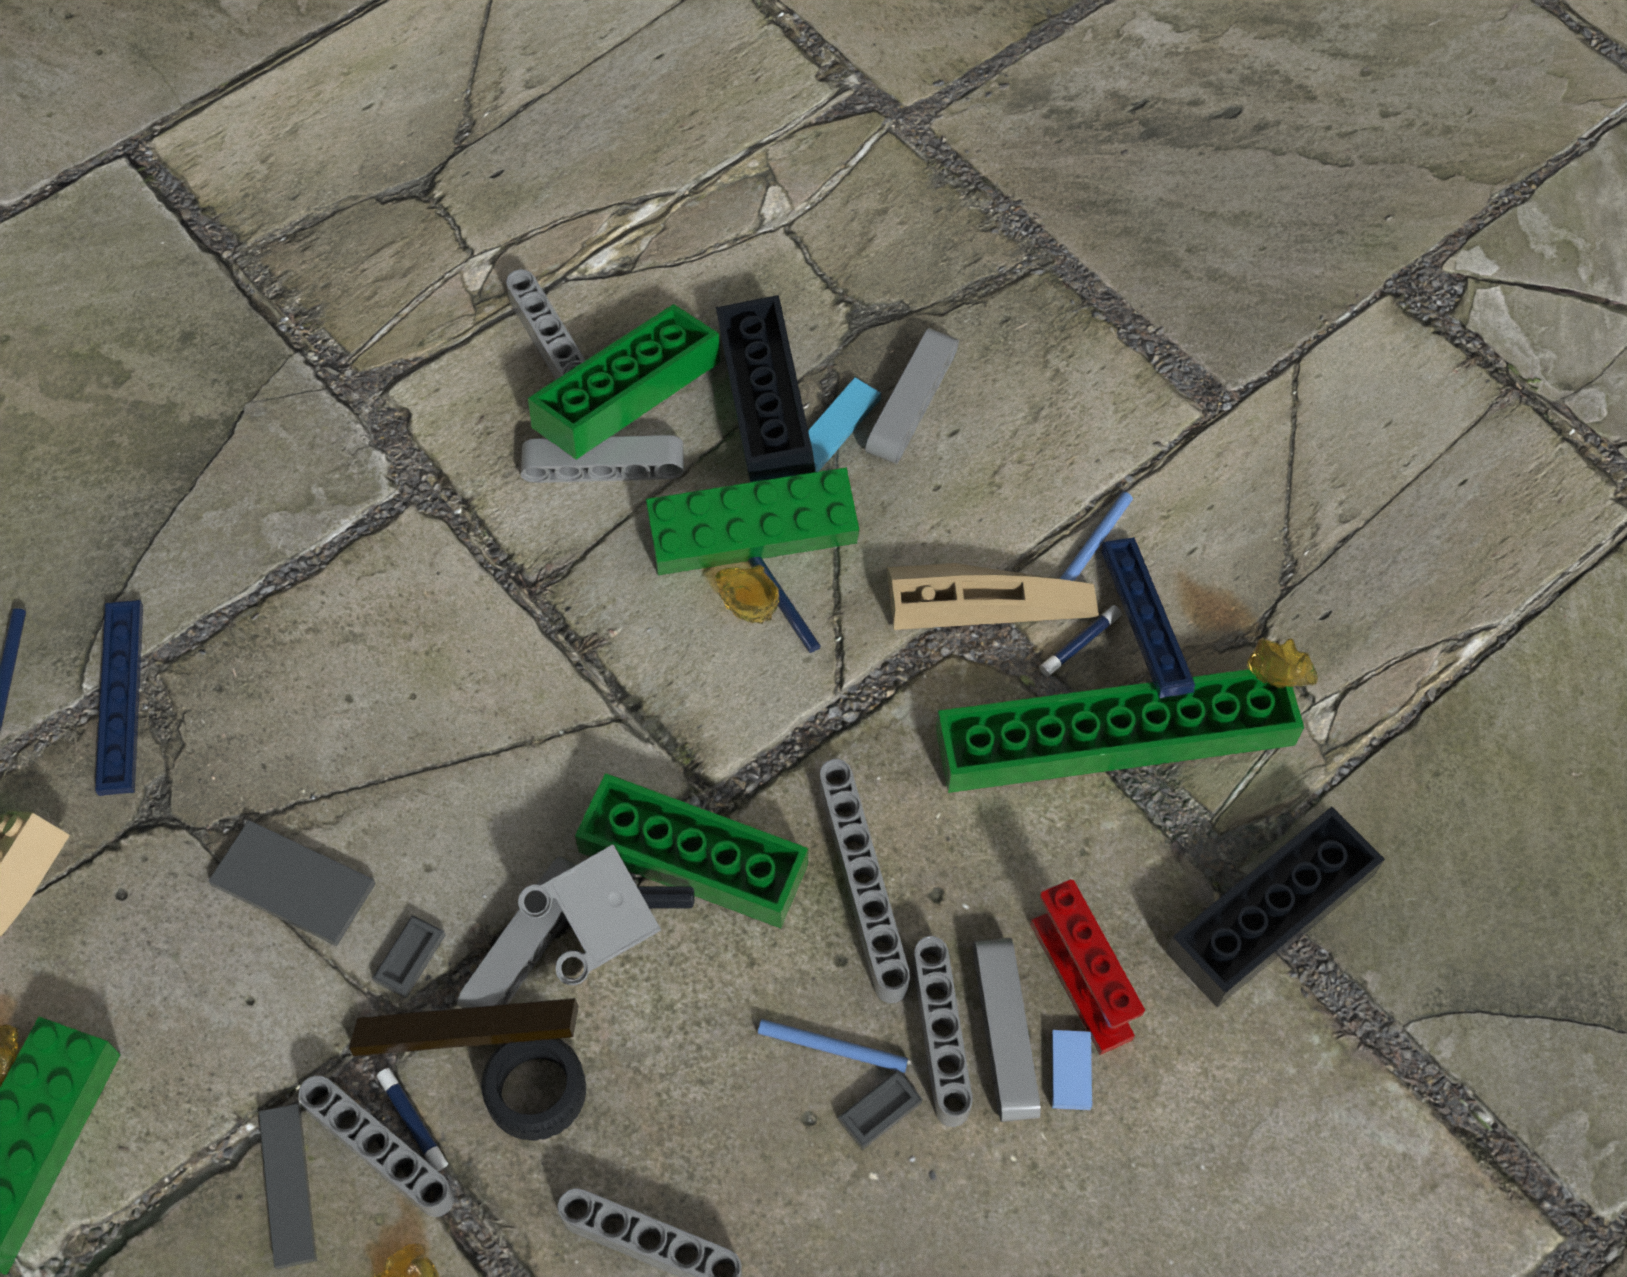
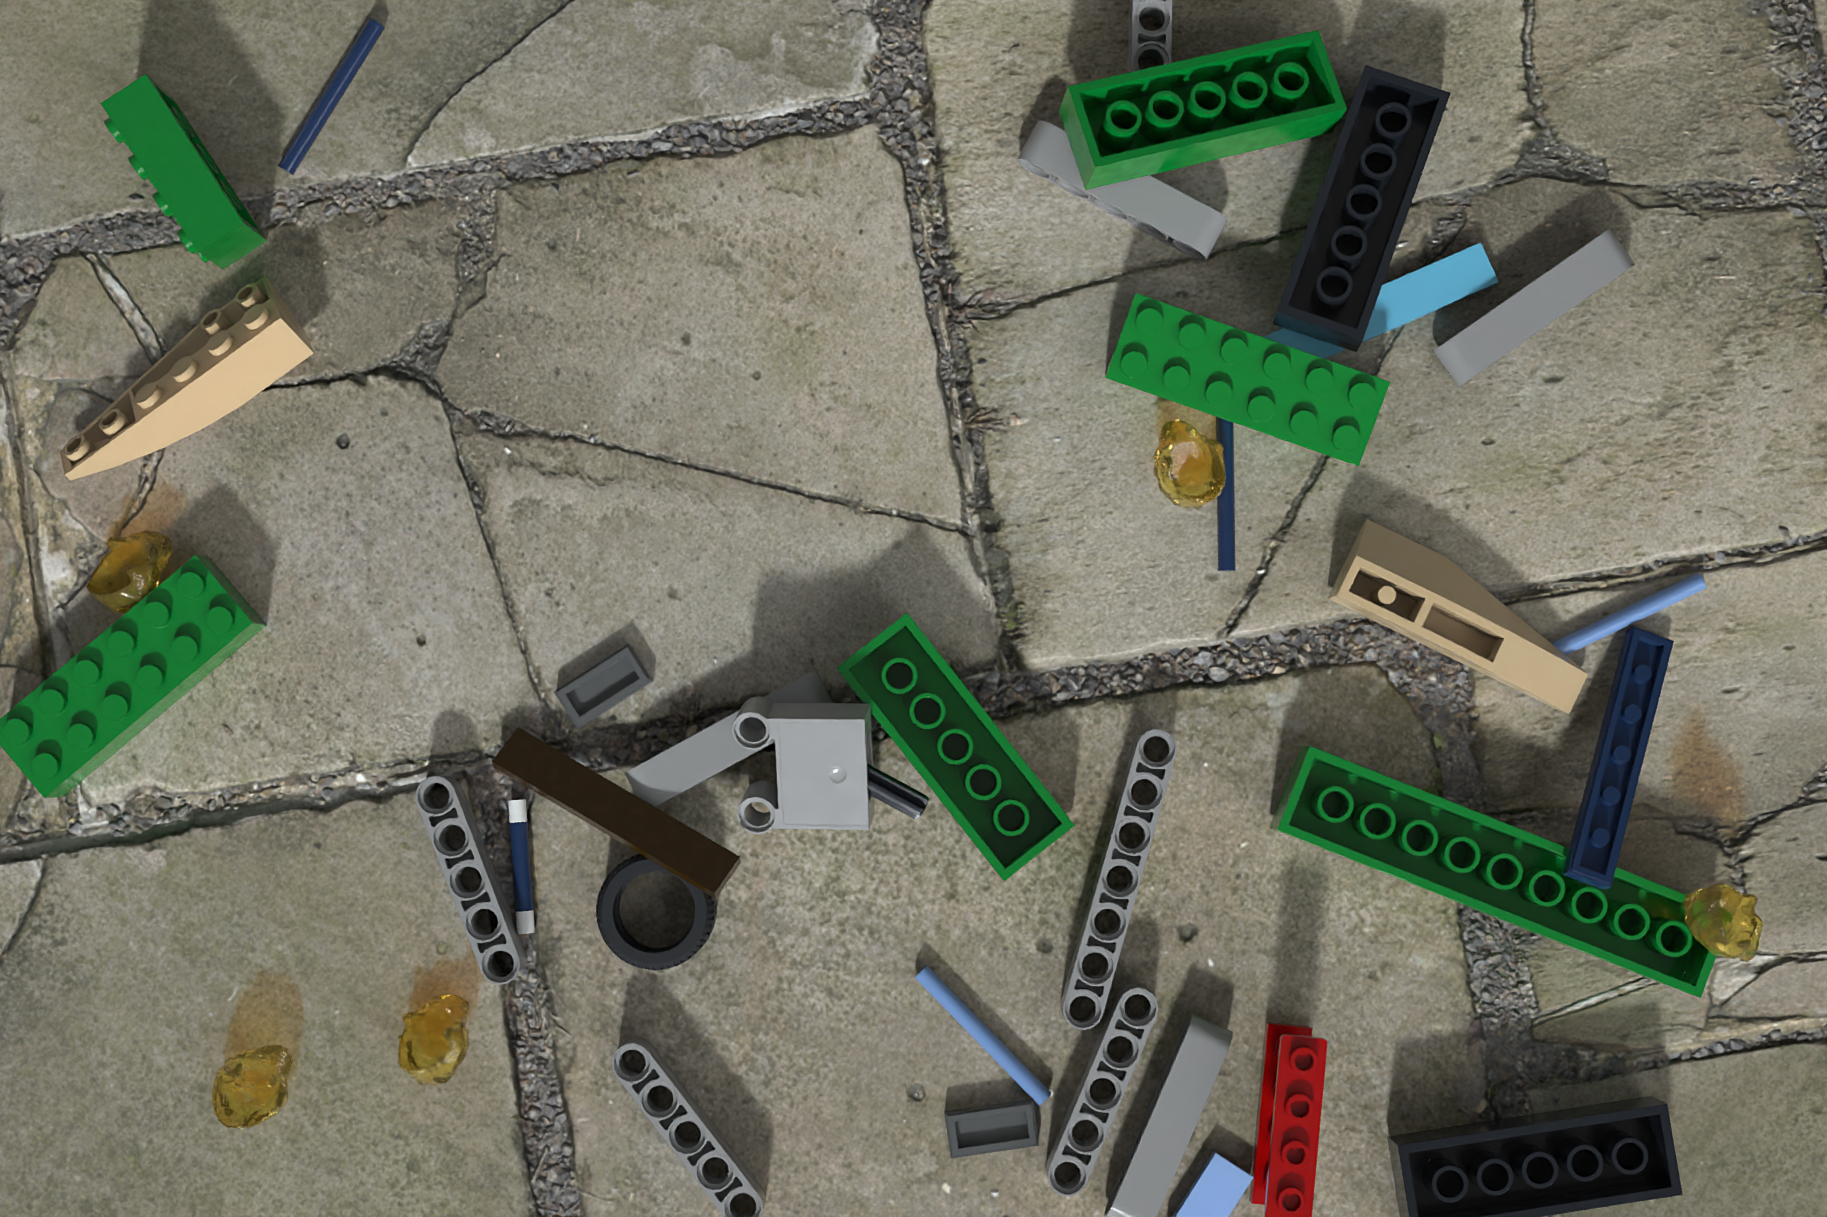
camera: 30 degrees right, 25 degrees up
(119, 698) = (441, 196): dark blue tile -> none
(287, 1186) = (368, 865): dark grey tile -> none
(292, 882) = (522, 532): dark grey tile -> none
(1080, 640) = (1529, 731): dark blue bar -> none

